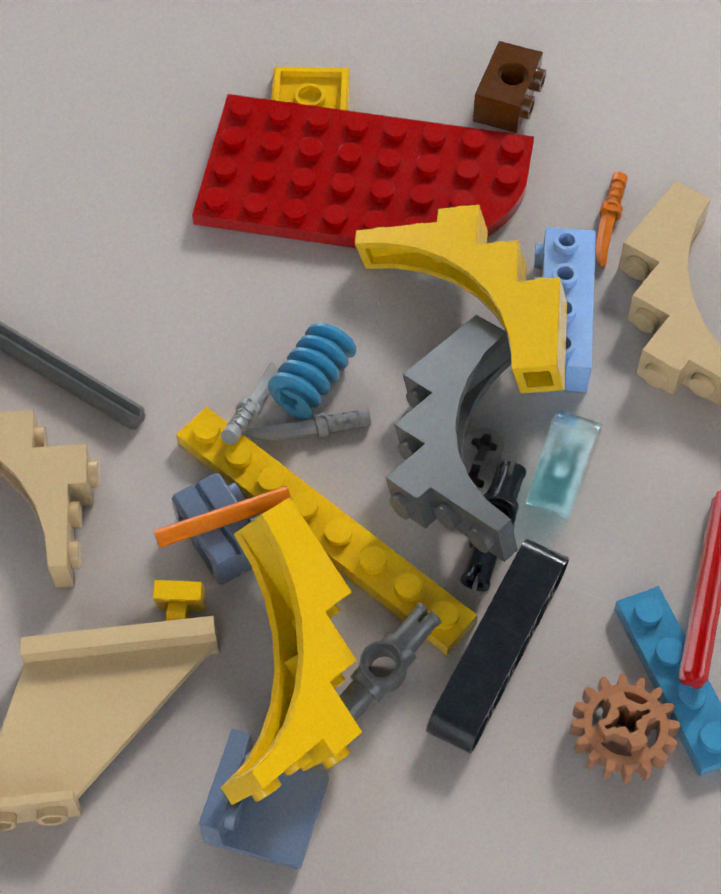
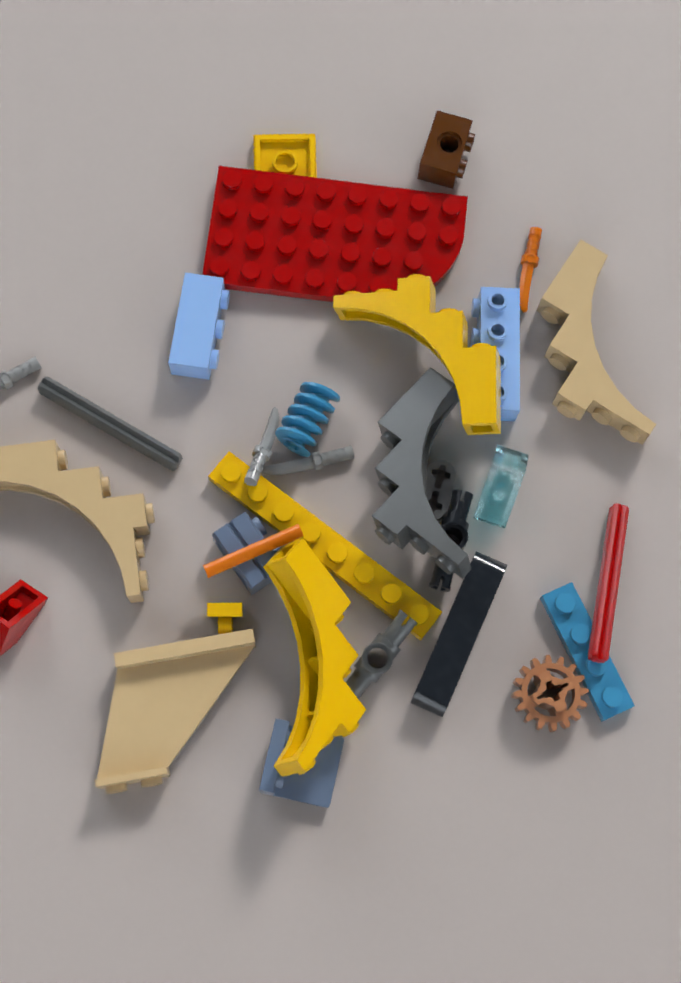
camera: 10 degrees left, 15 degrees up
(182, 264) = (198, 326): none -> light blue brick

